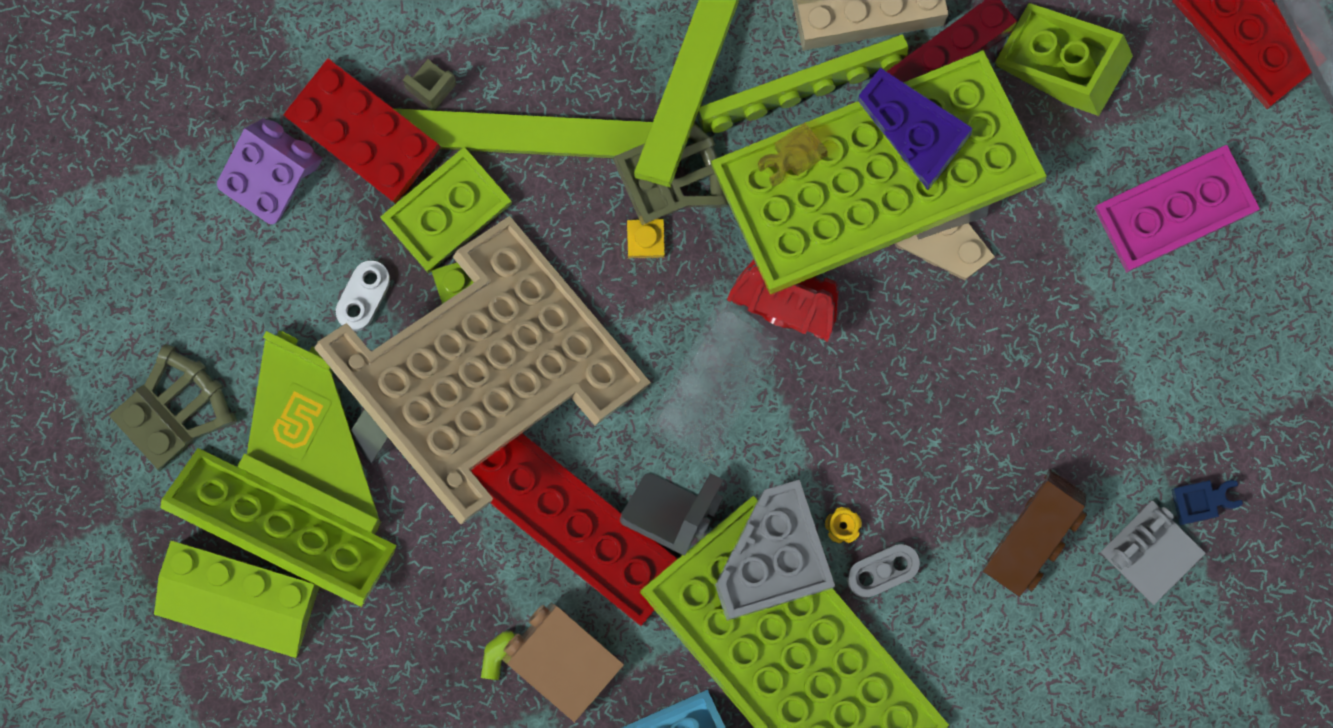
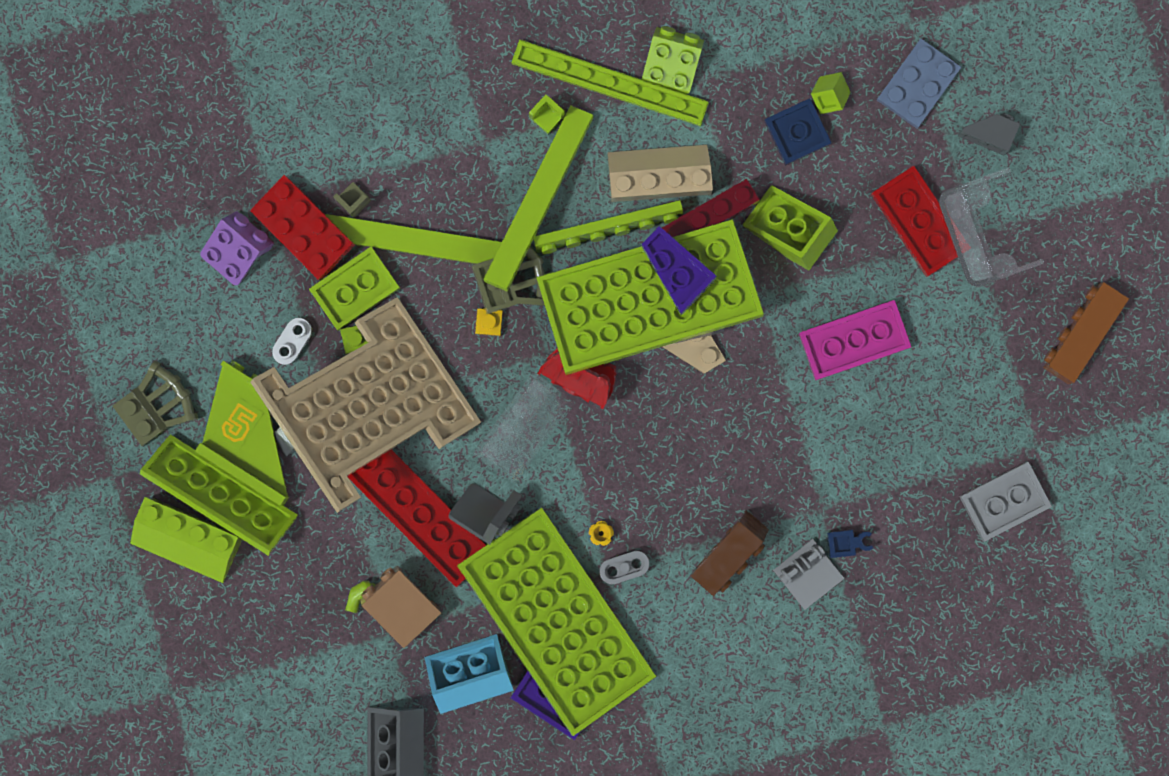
camera: 10 degrees right, 5 degrees up
(774, 556) = (550, 551): light grey plate -> none
(795, 151) = (595, 277): clear yellow plate -> none

